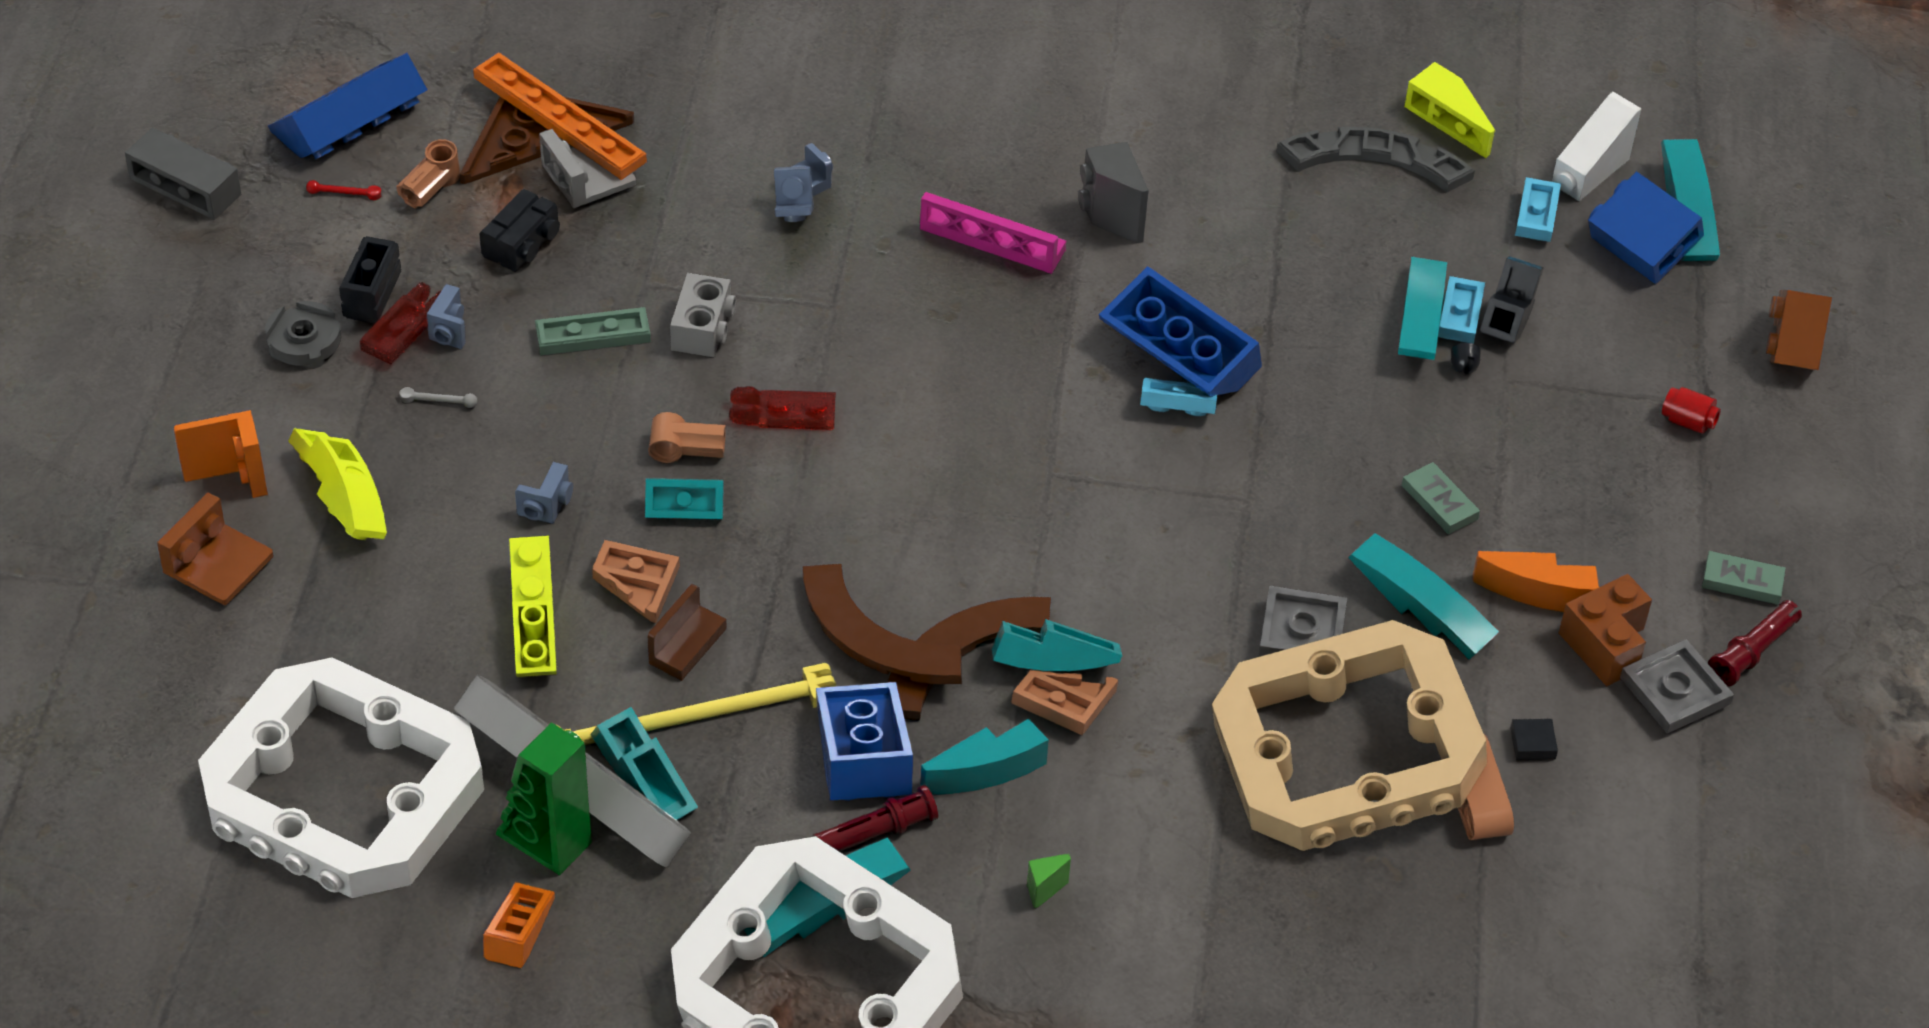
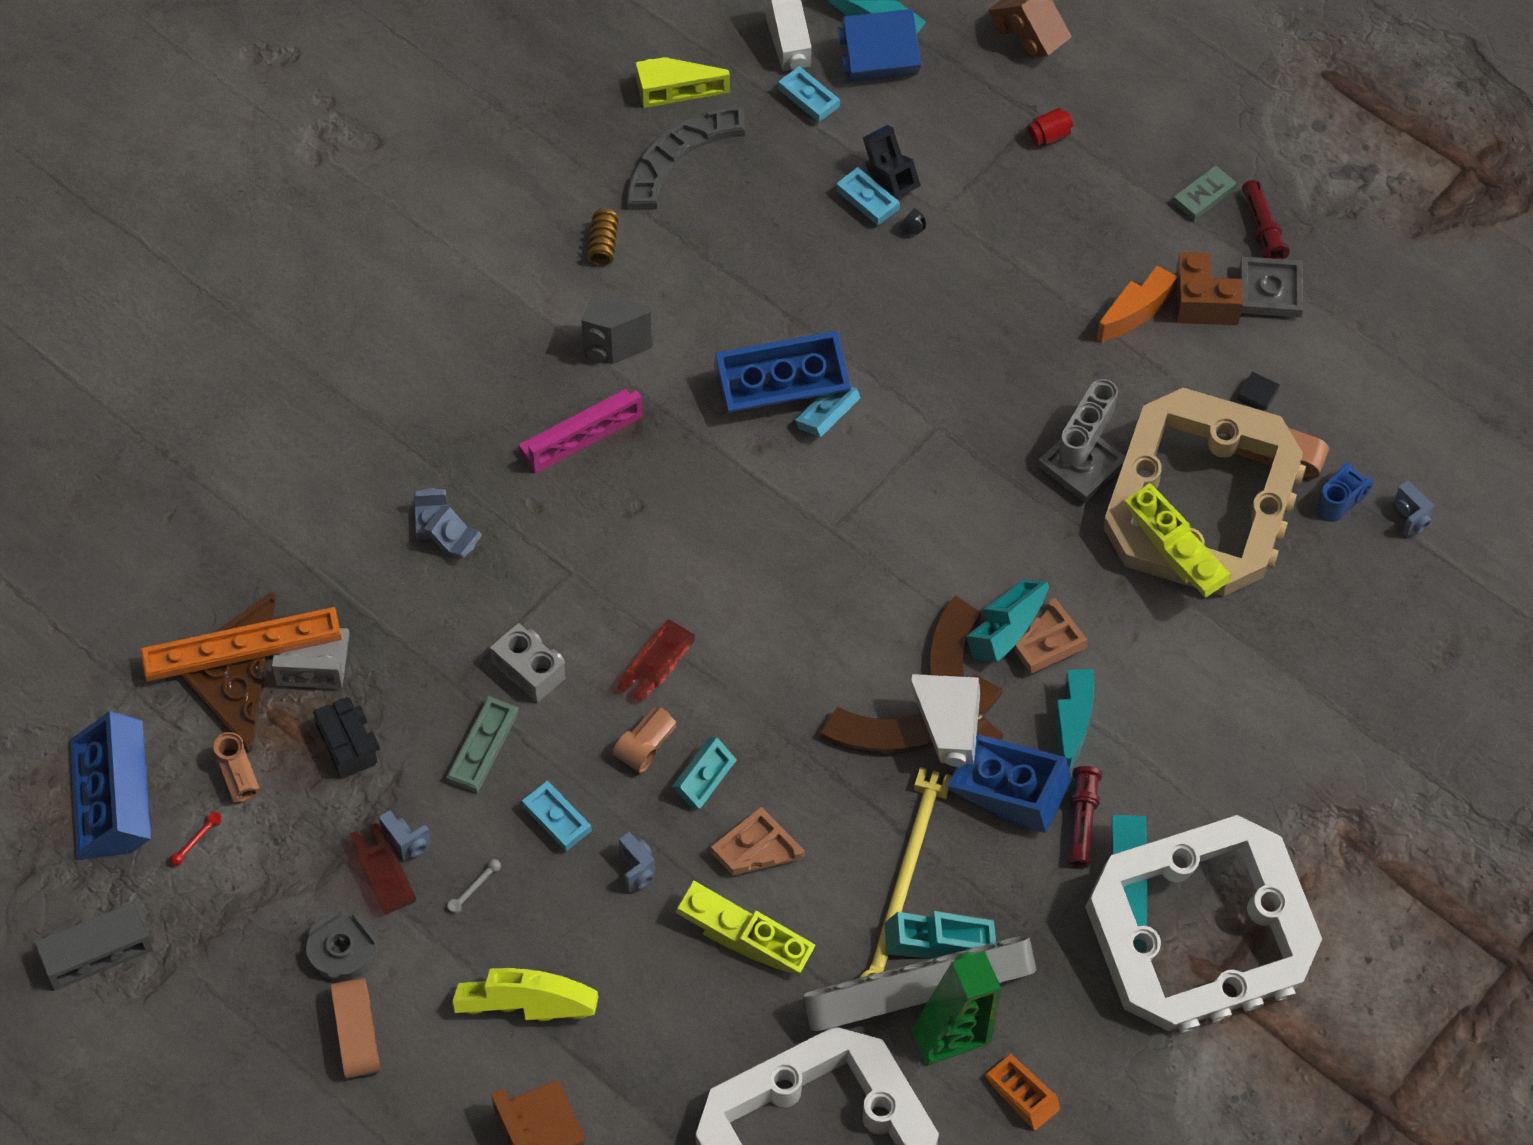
camera: 55 degrees left, 10 degrees up
(220, 448) = (449, 1042): orange bracket -> none
(226, 381) = (355, 1028): none -> nougat beam
(370, 279) = (328, 868): black brick -> none
(553, 415) = (556, 816): none -> medium azure plate
(684, 635) = (834, 844): reddish brown panel -> none
(887, 643) = (950, 714): none -> white slope
(1047, 877) = (1199, 743): bright green slope -> none
(1220, 143) = (603, 237): none -> pearl gold piece
(1255, 726) = (1176, 542): none -> neon yellow slope
(1342, 596) = (1086, 434): none -> light grey beam
(1417, 588) = (1126, 372): teal slope -> none
(1422, 308) = (857, 219): teal slope -> none
(1440, 498) = (1022, 314): sand green tile -> none
(1469, 866) = (1342, 493): none -> blue piece
(1502, 951) = (1415, 506): none -> sand blue bracket

